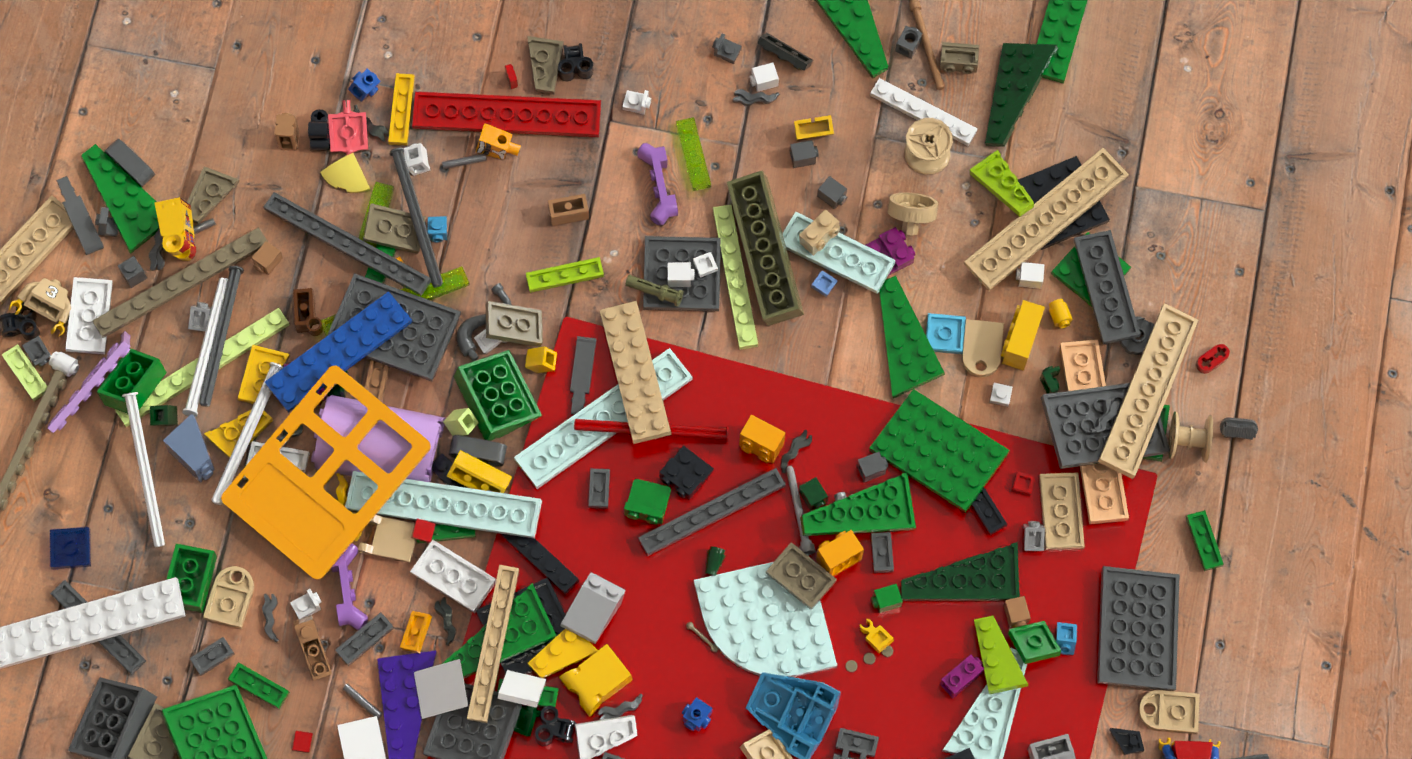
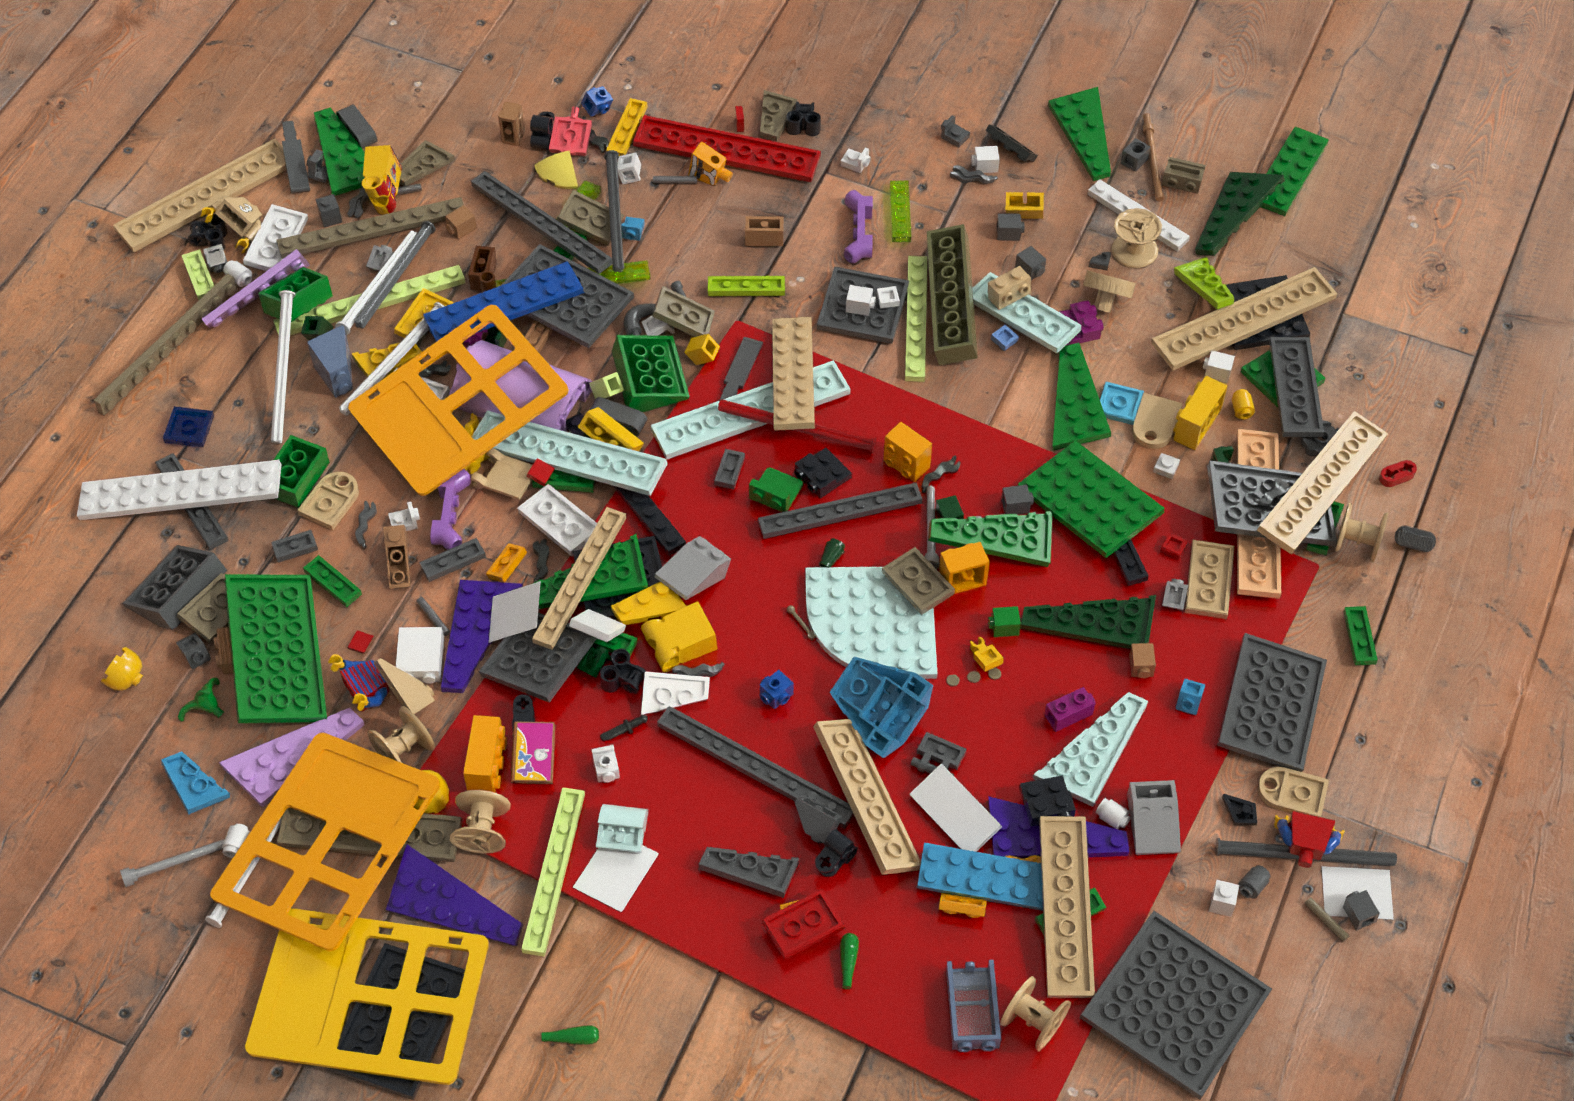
camera: 15 degrees right, 15 degrees down
(662, 292) = (839, 312): olive pin -> none
(882, 552) = (1009, 579): dark grey plate -> none
(898, 173) = (1100, 261): none -> dark grey tile
(998, 660) = (1112, 700): lime wing -> none
(1034, 642) = (1155, 690): green plate -> none

